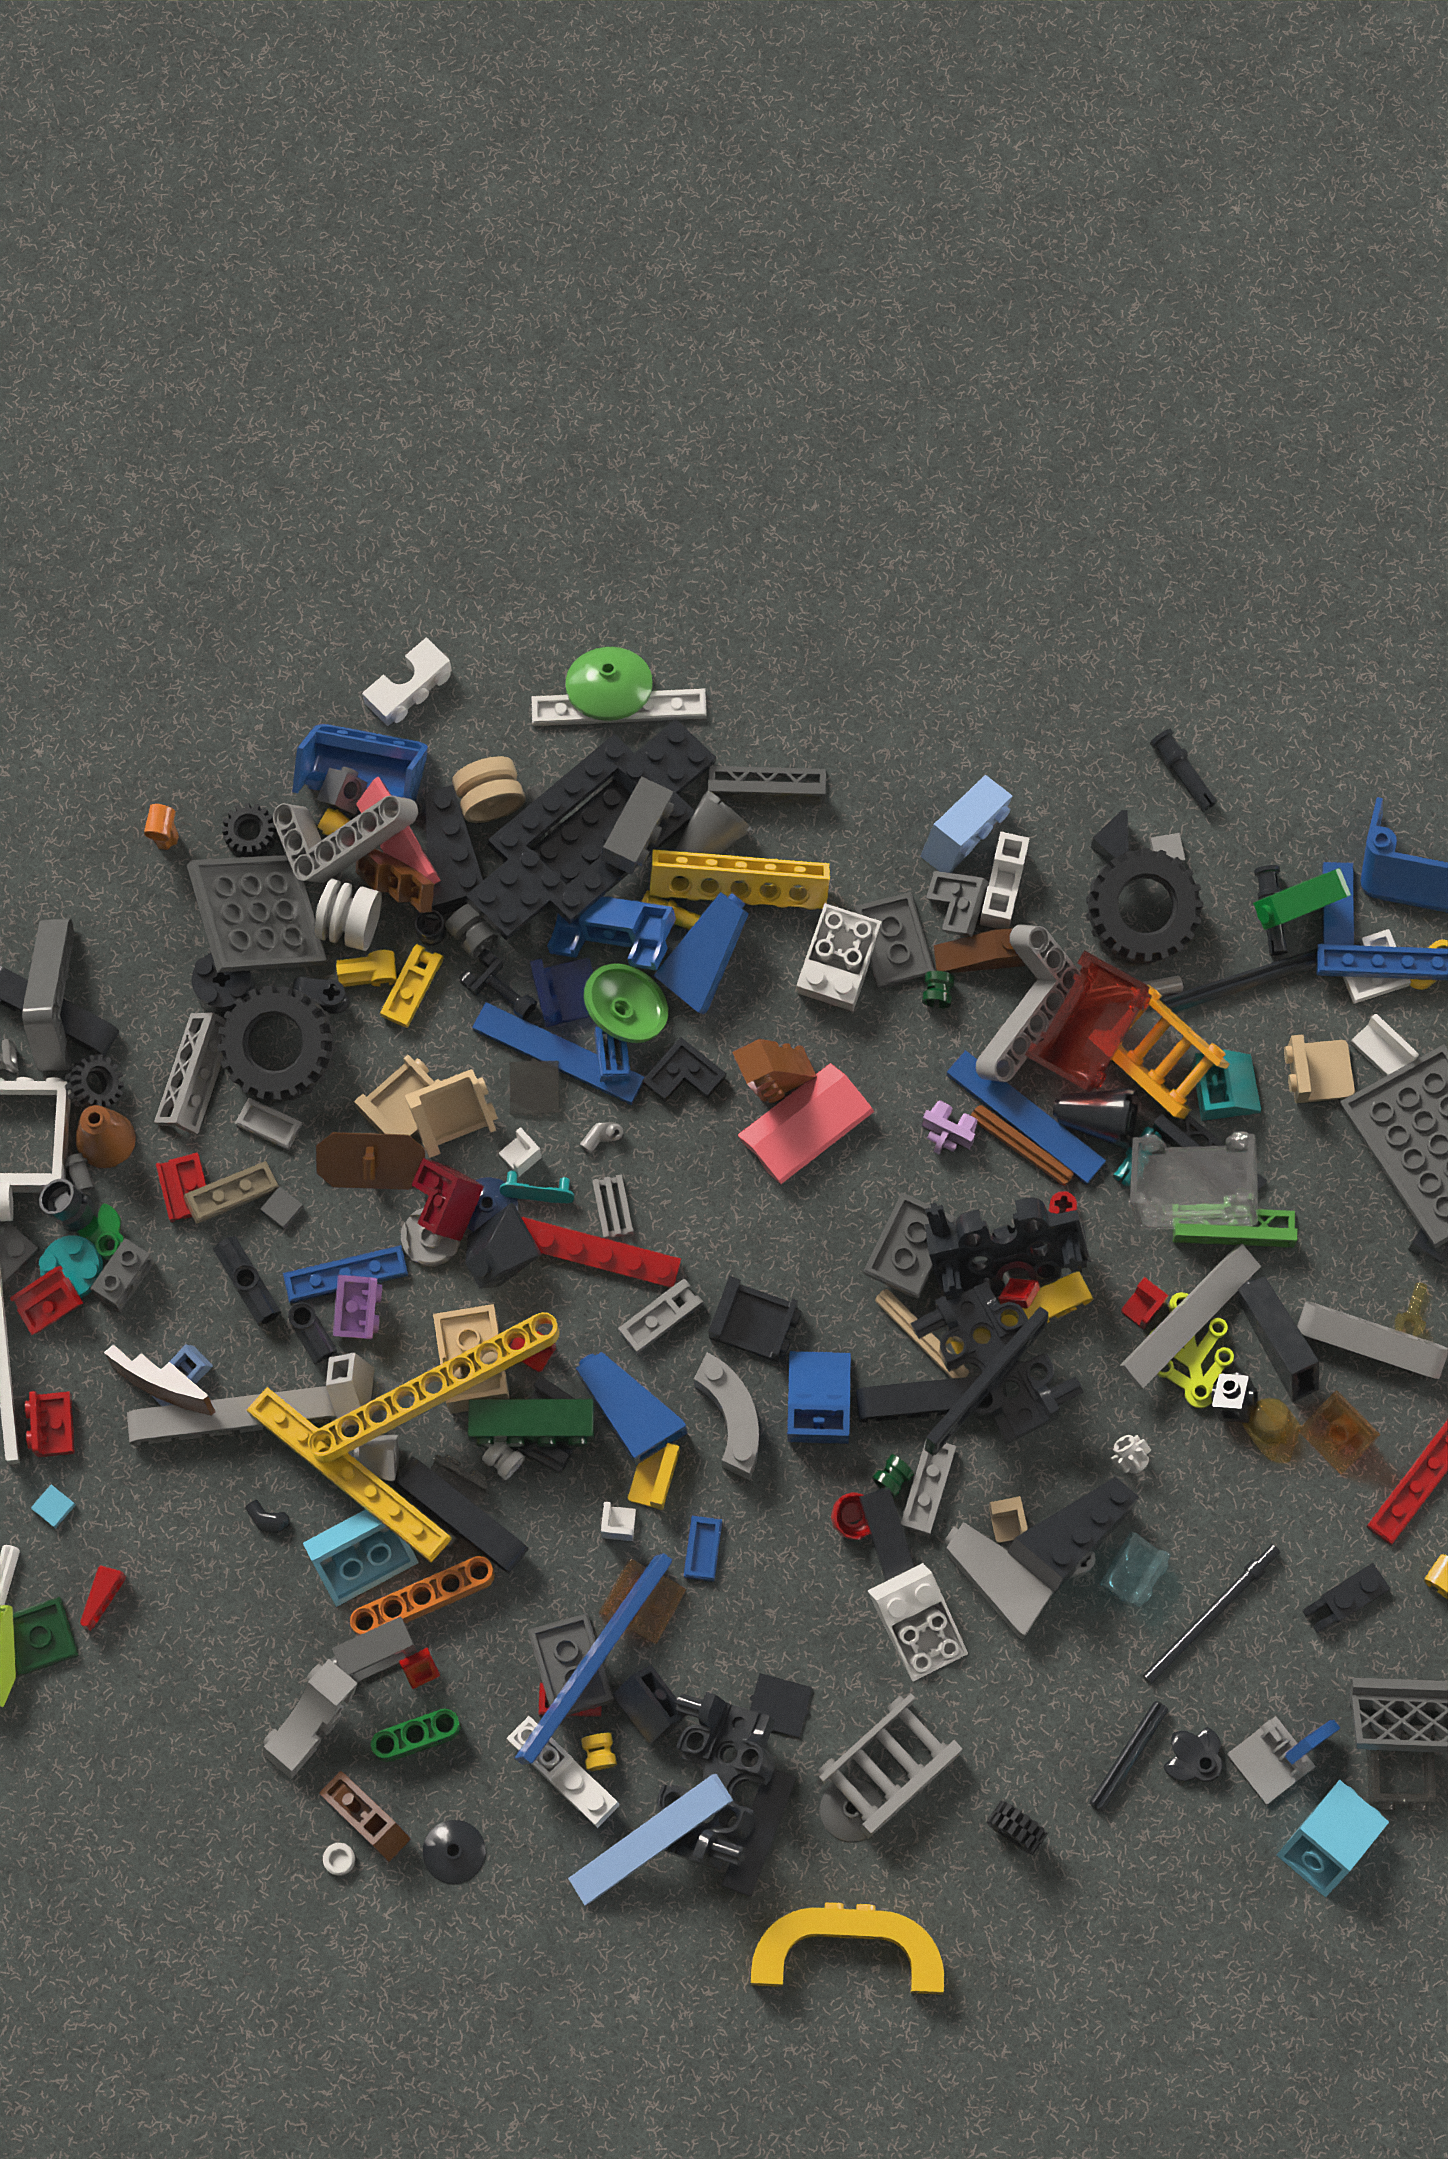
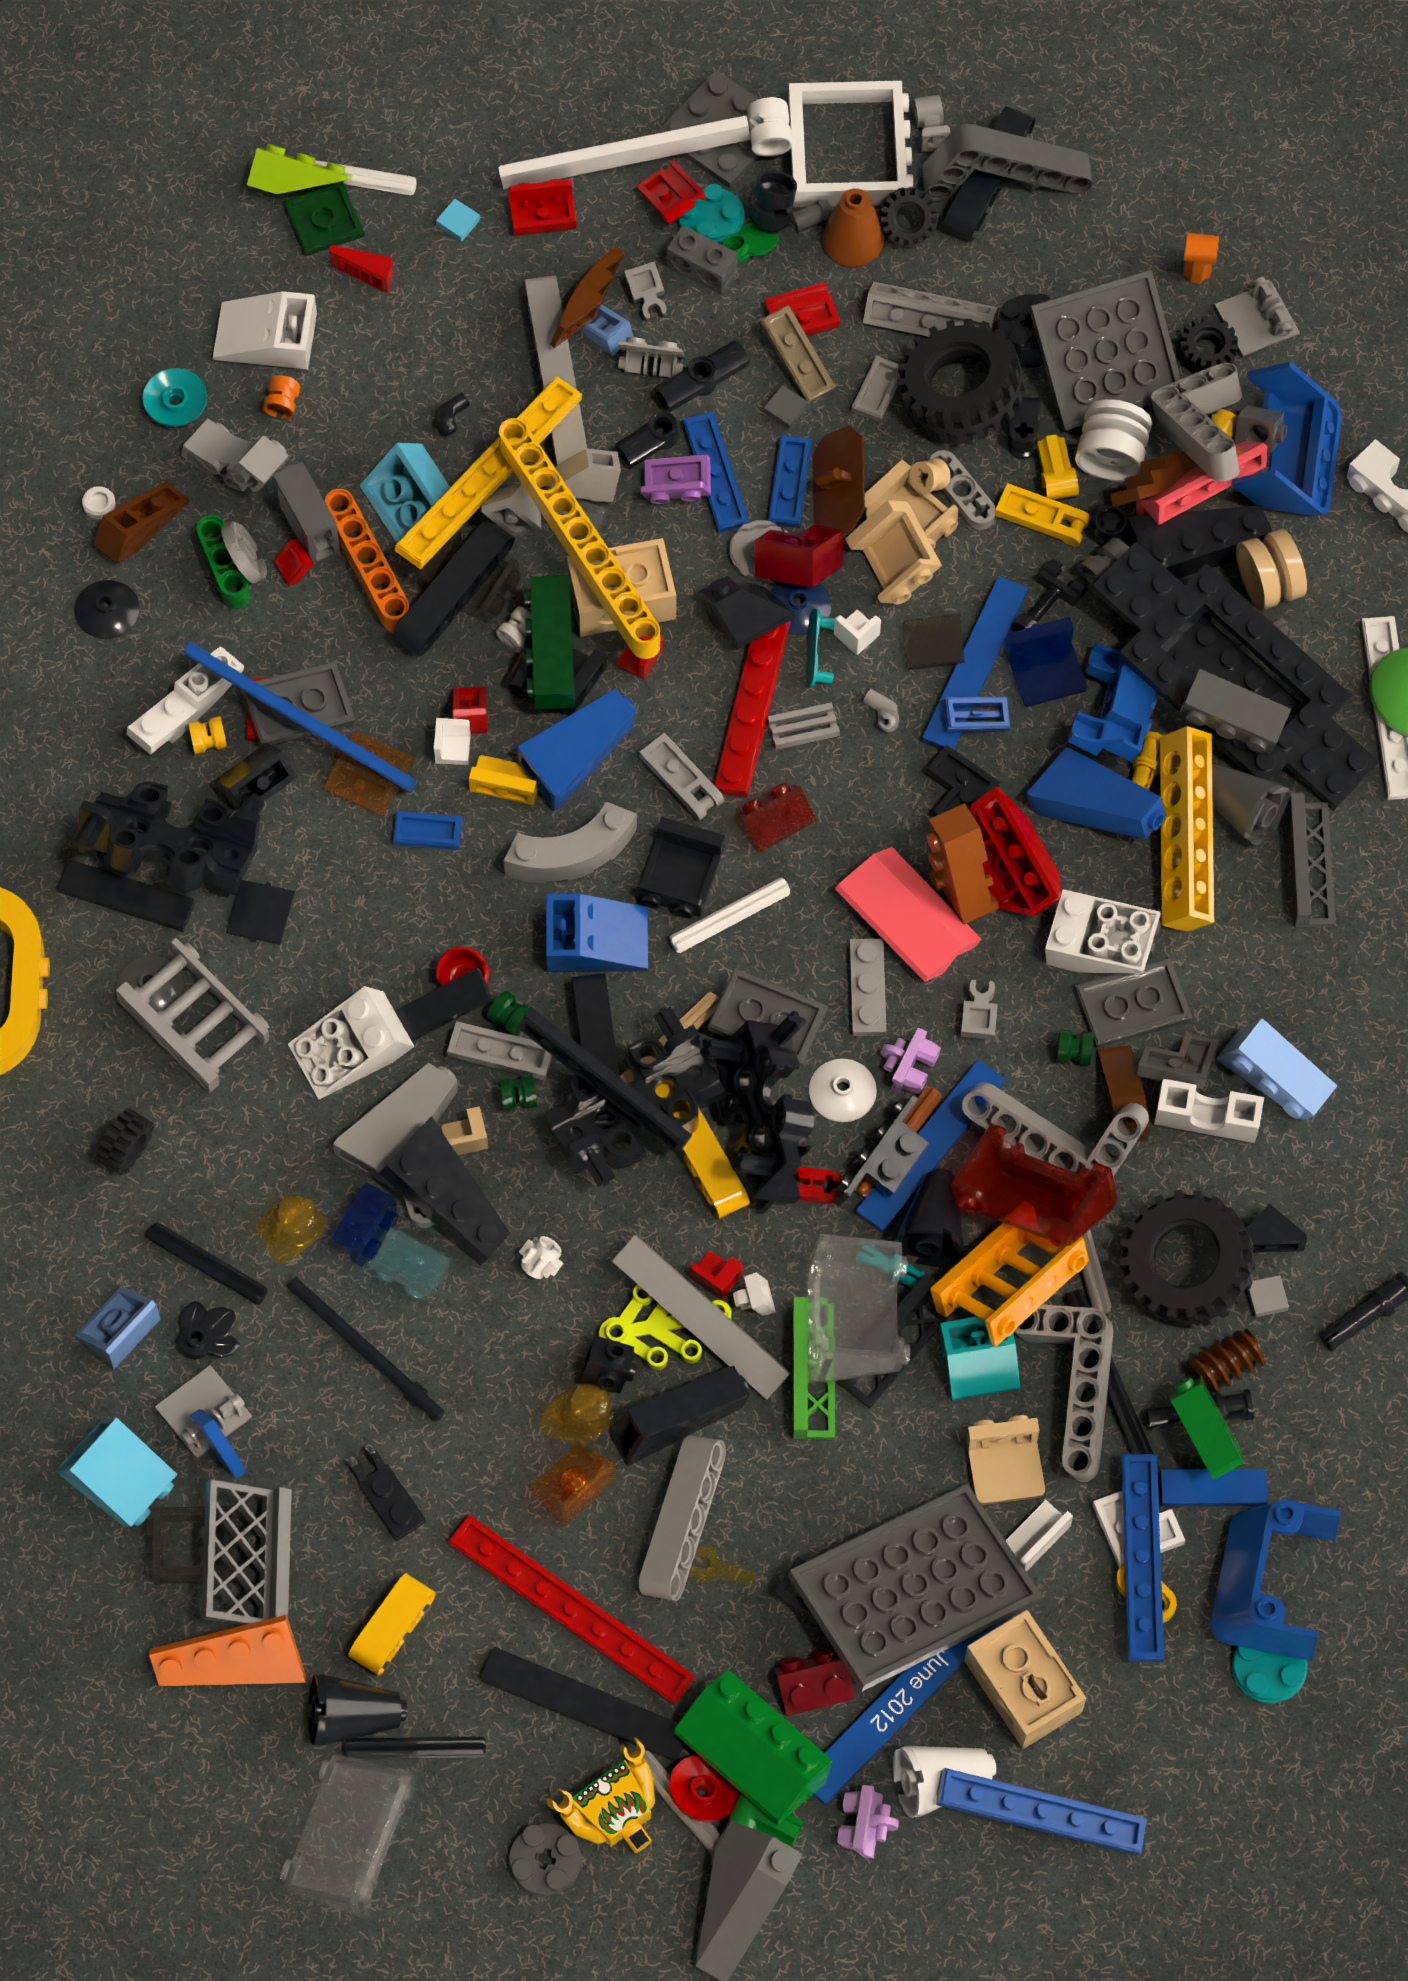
camera: 85 degrees right, 5 degrees down
(144, 1330) = (646, 287): none -> light grey plate
(165, 1692) = (267, 330): none -> white slope
(221, 787) = (1258, 317): none -> light grey hinge
(223, 1313) = (637, 348): none -> light grey hinge
(223, 1768) = (172, 385): none -> teal dish
(238, 1678) = (281, 396): none -> orange wheel
(357, 1058) = (963, 477): none -> light grey beam
(359, 1207) = (790, 481): none -> blue tile
(364, 1078) = (929, 475): none -> tan wheel
(414, 1712) = (243, 552): none -> light grey tile
(580, 1504) = (471, 705): none -> red slope
(626, 1003) = (1050, 714): bright green dish -> none
(650, 1839) = (109, 776): light blue tile -> none
(702, 1234) = (776, 815): none -> clear red bracket
(777, 1017) = (1017, 858): none -> red wedge
(799, 1279) = (729, 915): none -> white axle
(873, 1163) = (867, 987): none -> light grey plate
(906, 1068) = (979, 1016): none -> light grey plate
(959, 1200) = (839, 1104): none -> white dish
(970, 1470) = (525, 1089): none -> dark green wheel
(1019, 1292) = (717, 1131): red tile -> none
(1041, 1151) = (889, 1157): none -> bracket
(1093, 1680) = (290, 1227): none -> clear yellow piece
(1100, 1608) = (365, 1223): none -> clear blue bracket
(1166, 1269) = (755, 1296): none -> white tile
(1190, 1837) = (119, 1325): none -> medium blue slope
(1230, 885) = (1226, 1360): none -> reddish brown piece
(1249, 1000) = (1081, 1378): none -> light grey beam

